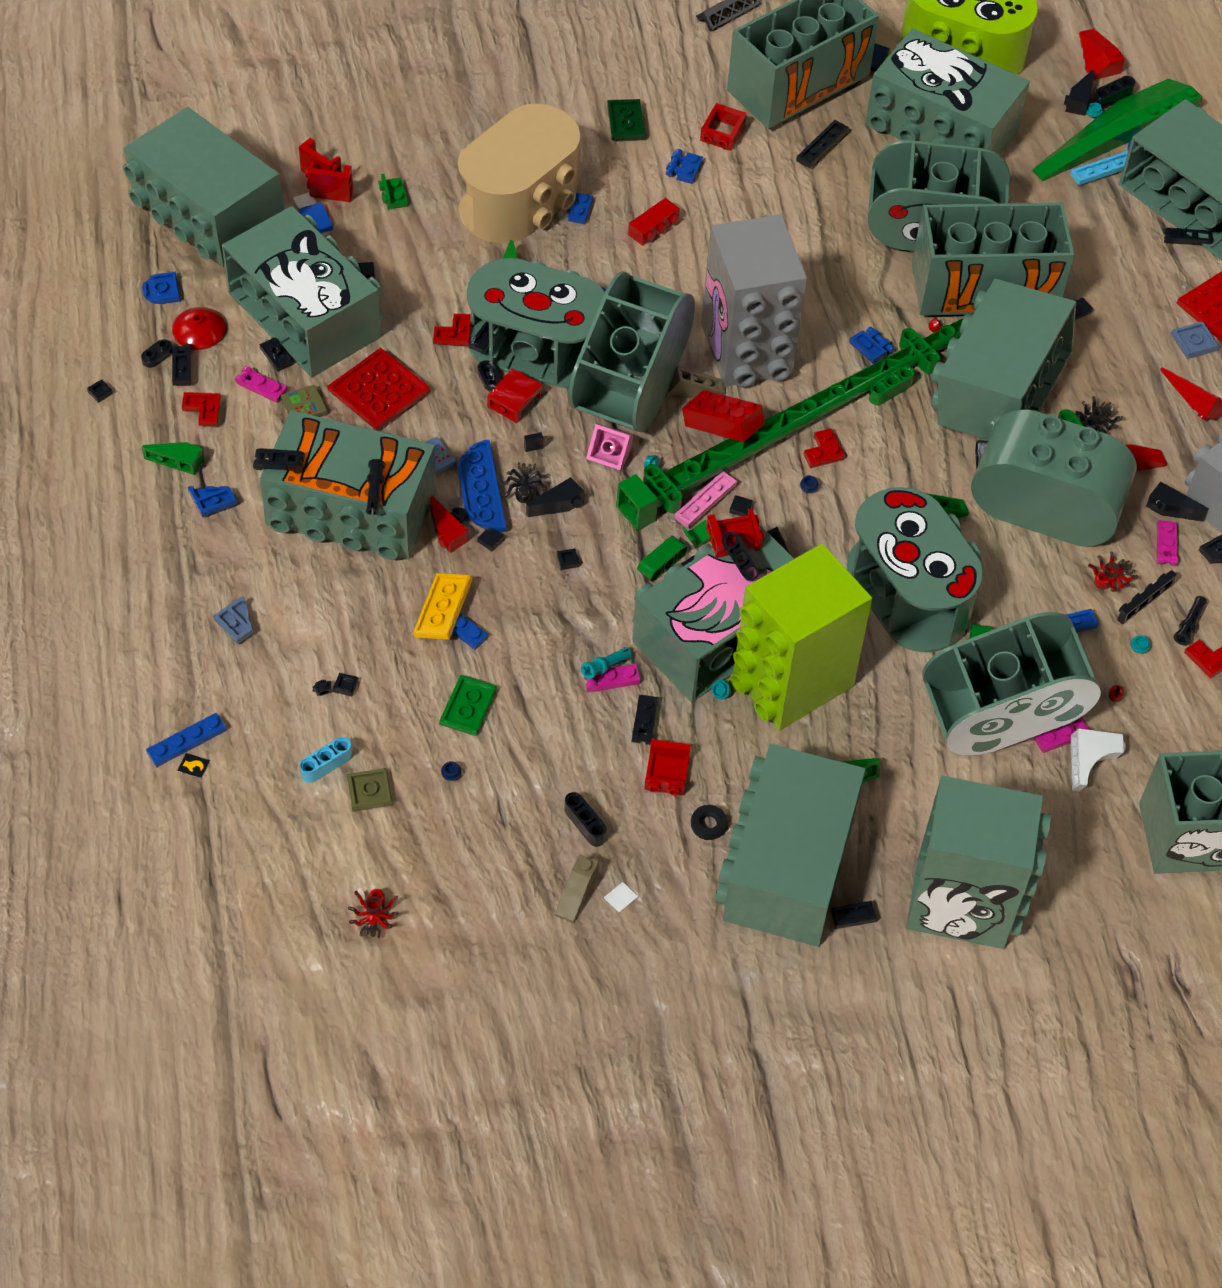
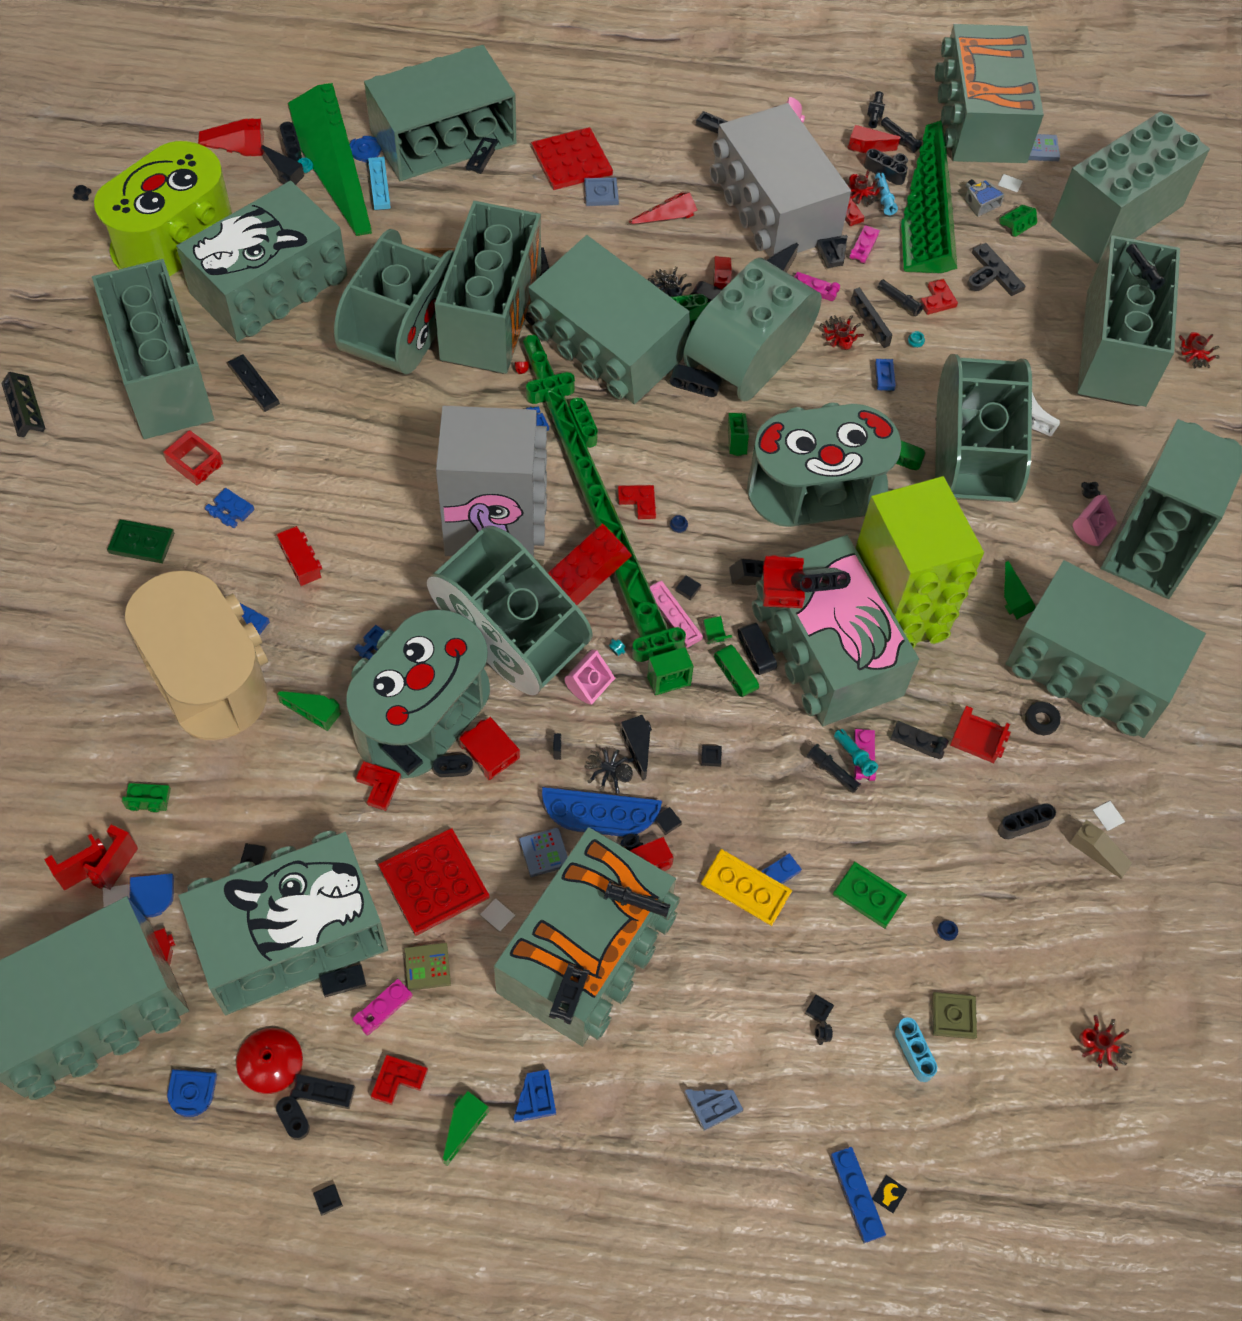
camera: 75 degrees left, 5 degrees up
(591, 646) = (826, 763): none -> black pin

